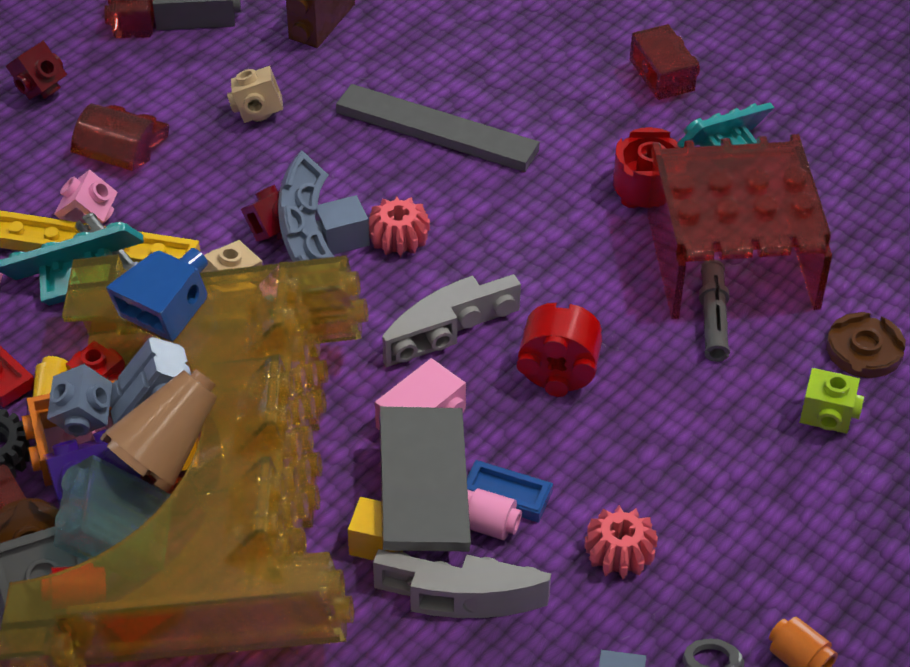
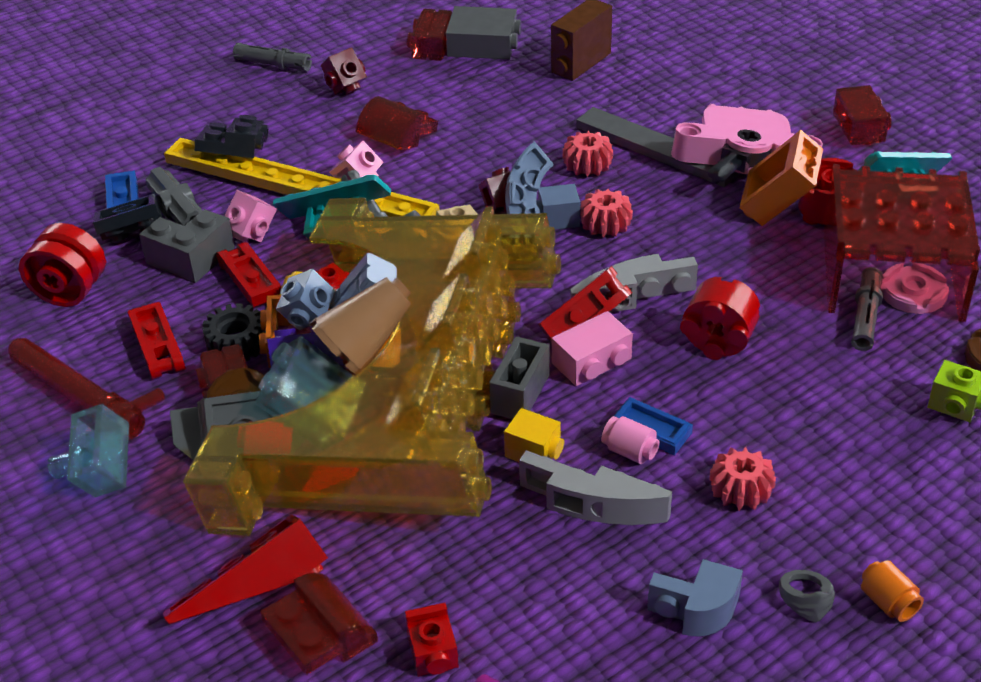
camera: 15 degrees right, 5 degrees down
(161, 292) = (388, 223): blue torso -> none
(255, 94) = (511, 105): tan brick -> none
(348, 458) = (519, 377): none -> dark grey brick
(360, 149) = (587, 153): none -> coral gear
(404, 354) = (586, 304): none -> red plate
(423, 479) = (577, 401): dark grey tile -> none
(540, 115) = (731, 139): none -> bright pink piece
(612, 138) = (781, 178): none -> orange window
(761, 280) = (914, 288): none -> bright pink tile

